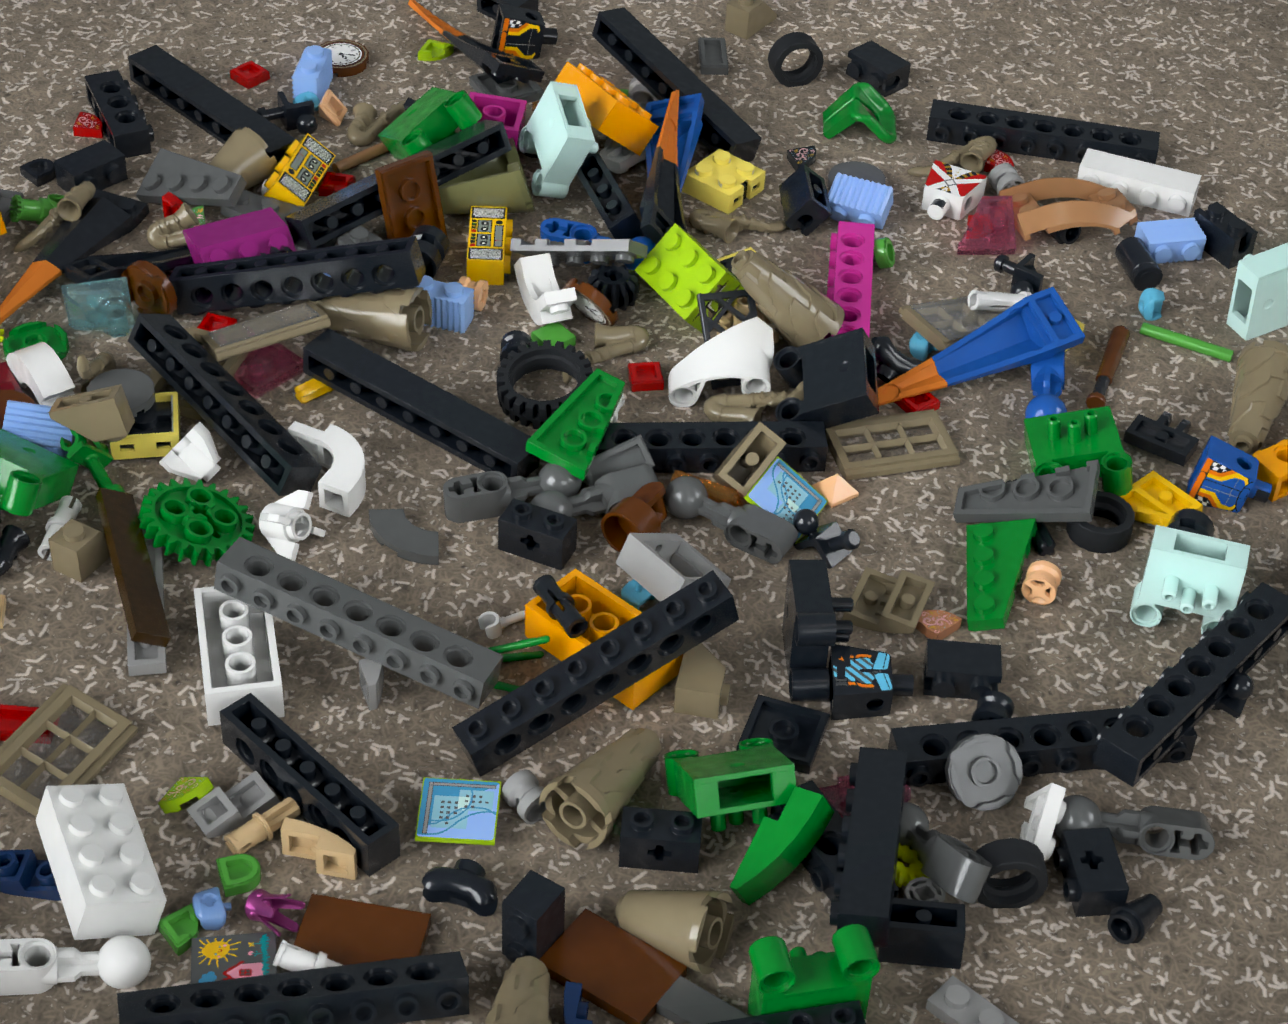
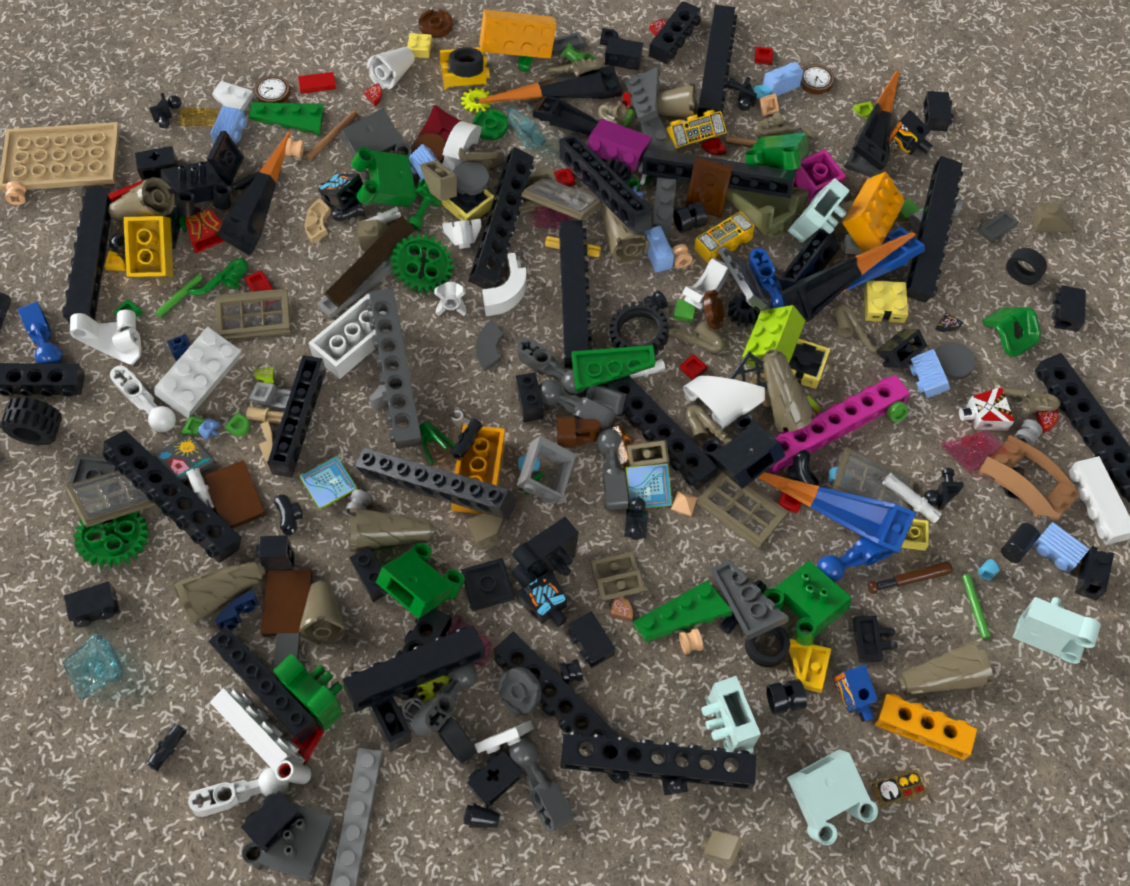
camera: 55 degrees right, 20 degrees up
(150, 288) = (552, 137): reddish brown tile -> none
(265, 907) = (222, 447): flat silver piece -> none
(781, 844) = (395, 627): green slope -> none

